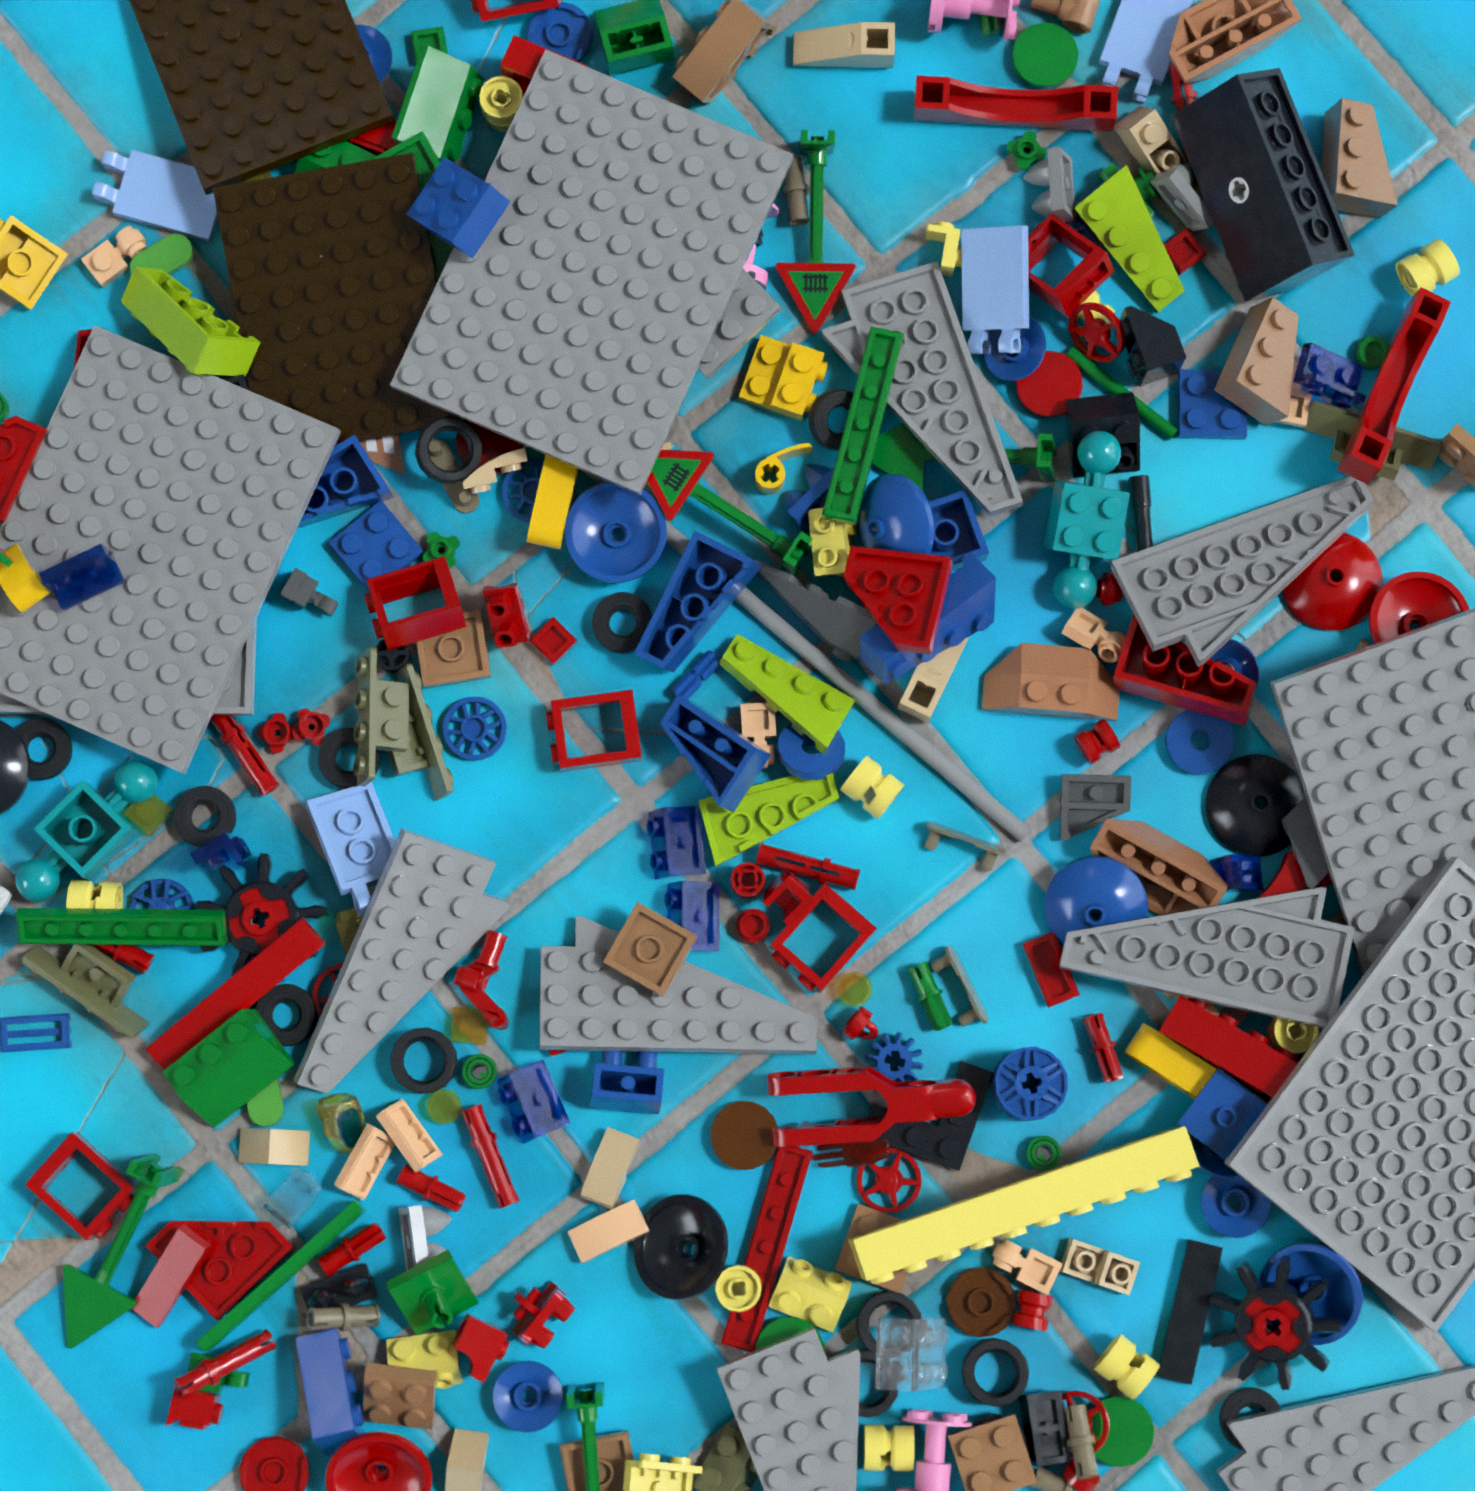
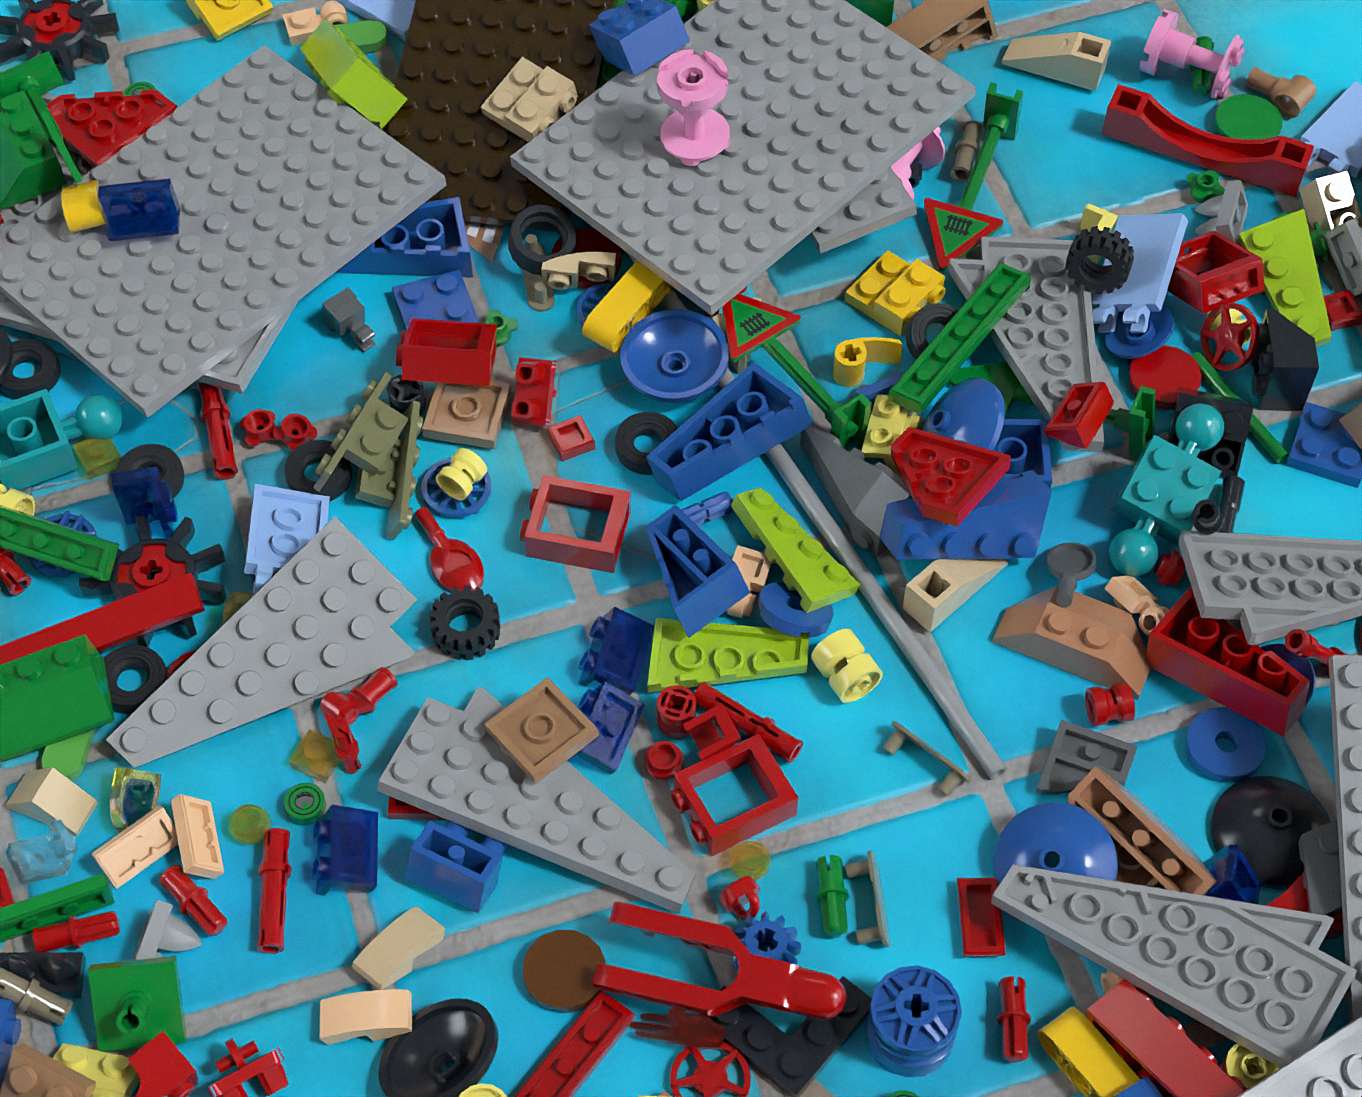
camera: 20 degrees right, 25 degrees down
(380, 309) = (530, 99): none -> tan plate
(412, 1037) = (239, 745): black tyre -> none
(479, 724) = (463, 471): none -> light yellow wheel
(501, 801) = (451, 560): none -> red piece
(536, 839) = (470, 641): none -> black tyre
(551, 298) = (693, 87): none -> bright pink piece
(961, 300) = (1102, 244): none -> black tyre
(994, 480) = (1080, 414): none -> red slope
(1026, 619) = (1070, 564): none -> dark grey piece
(1131, 546) = (1207, 517): none -> black axle
(1242, 643) = (1307, 646): none -> red bar

